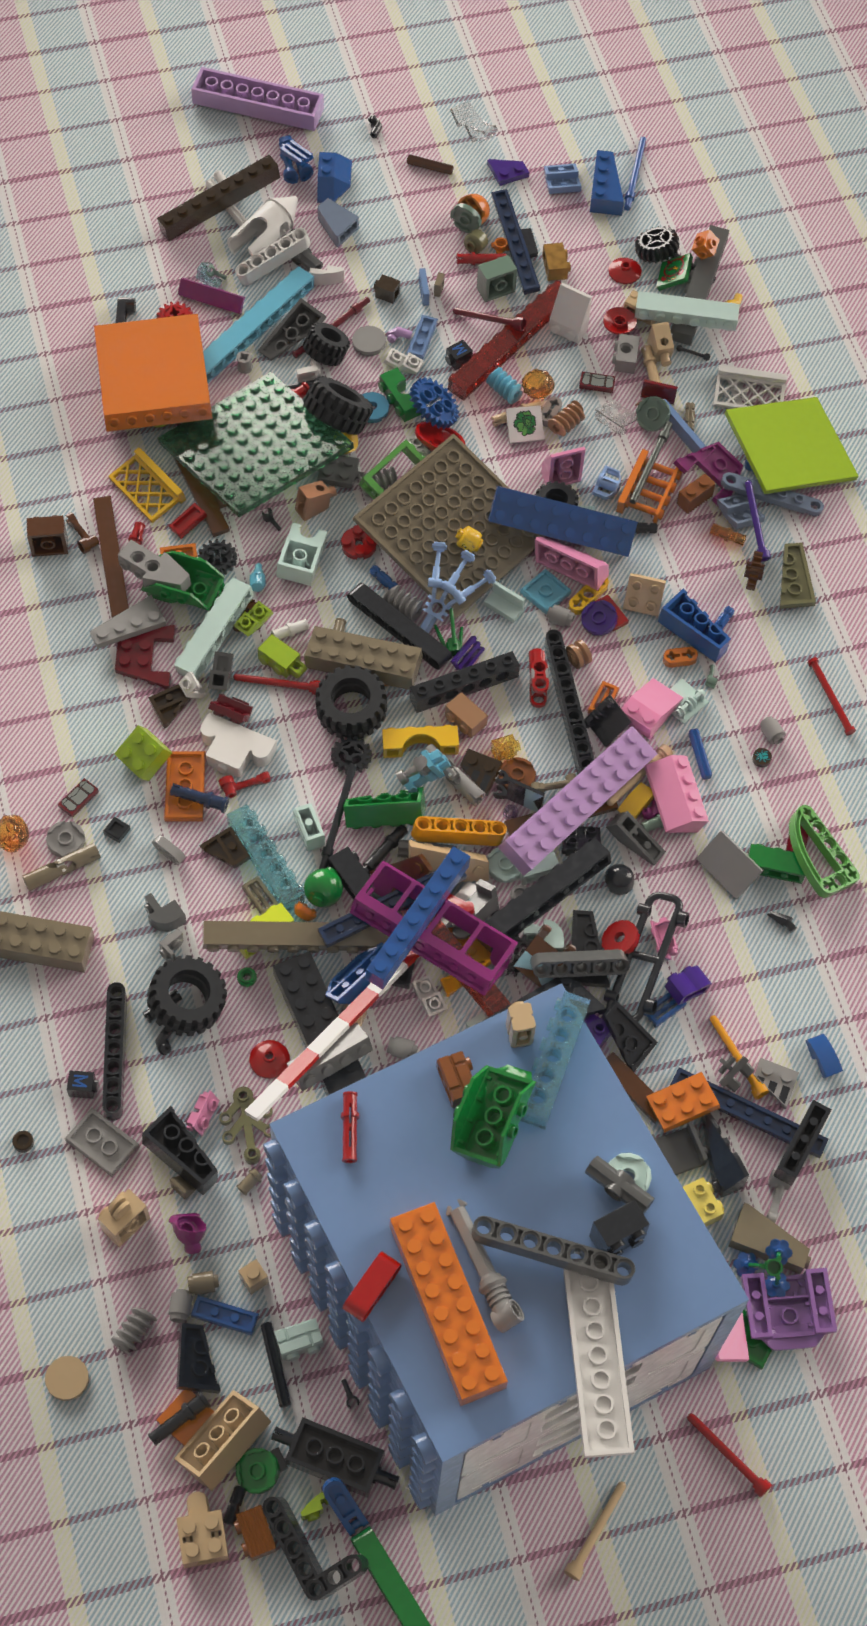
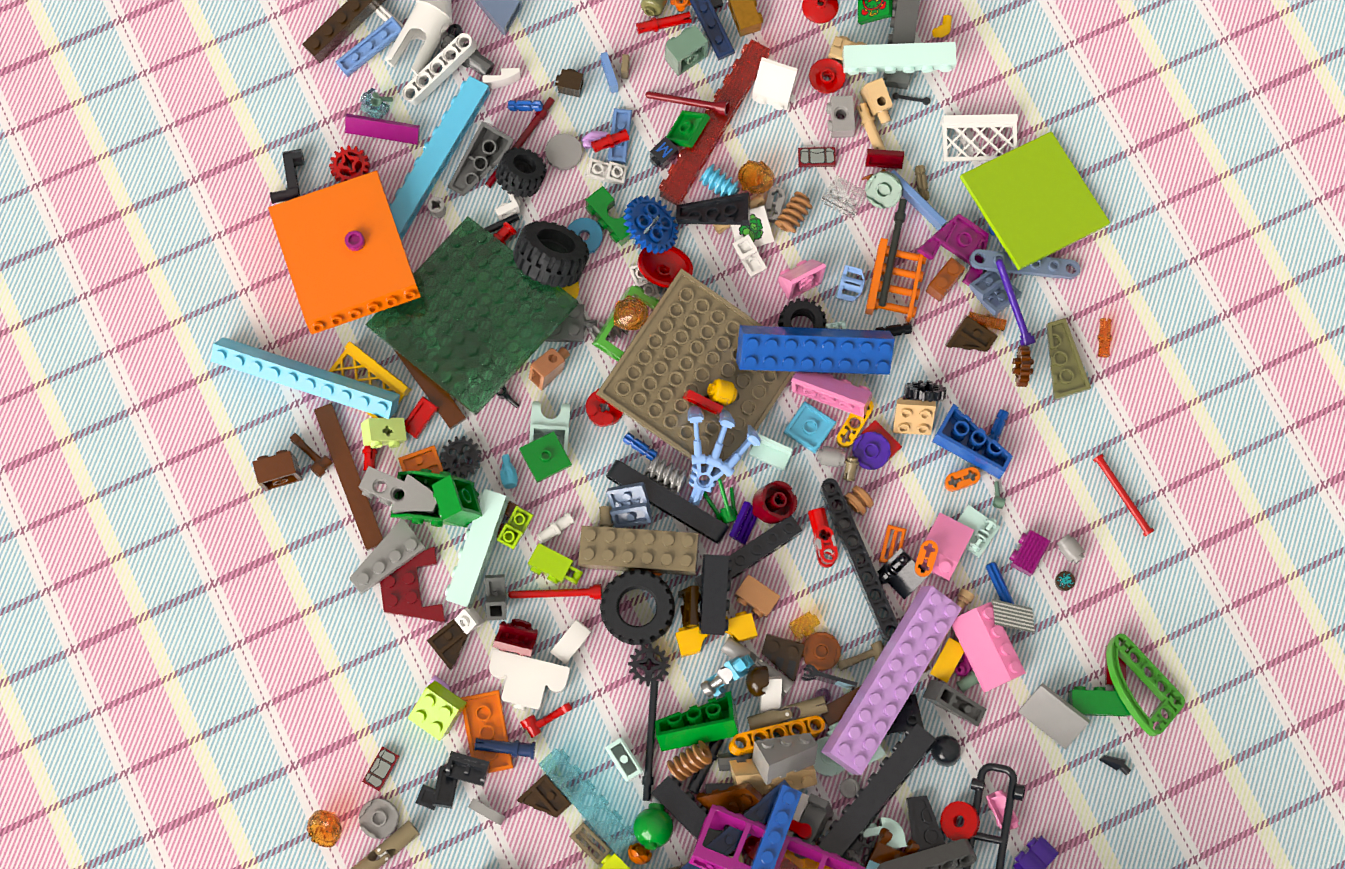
camera: 10 degrees left, 15 degrees up
(92, 468) = (305, 377): none -> brick
(135, 821) = (444, 790): none -> black tile
(152, 522) = (383, 432): none -> yellowish green brick
(159, 806) = (467, 768): none -> black hinge
(164, 361) = (354, 240): none -> magenta tile
(204, 578) = (456, 500): none -> brick
(214, 234) = (369, 46): none -> medium blue tile
(282, 722) = (570, 641): none -> white slope
(294, 562) = (545, 457): none -> green plate
(342, 298) = (525, 105): none -> blue axle
(364, 618) = (629, 505): none -> sand blue slope
(371, 839) = (691, 763): none -> medium nougat piece
(398, 458) = (630, 313): none -> clear orange hair
(400, 704) = (689, 611): none -> dark brown wing
(412, 336) = (610, 140): none -> red pin
(424, 698) = (714, 594): none -> black brick
(448, 777) = (757, 679): none -> dark brown hair
(453, 546) = (703, 402): none -> red tile
(460, 798) = (772, 698): none -> white slope
(474, 842) = (784, 754): none -> light grey wedge
(485, 337) = (687, 128): none -> green tile
(496, 813) = (772, 717): none -> dark tan piece
(498, 638) = (774, 502): none -> dark red brick
(501, 402) = (716, 211): none -> black wing
(518, 445) = (749, 256): none -> white slope
(576, 628) = (850, 468): none -> dark tan pin
(627, 702) = (921, 557): none -> orange beam
(662, 574) = (925, 391): none -> black gear
(706, 773) = (1013, 616): none -> light grey sticker
(711, 542) = (971, 336): none -> dark brown wing
(732, 726) = (1029, 552): none -> magenta brick
(836, 566) = (1104, 337): none -> clear orange pin

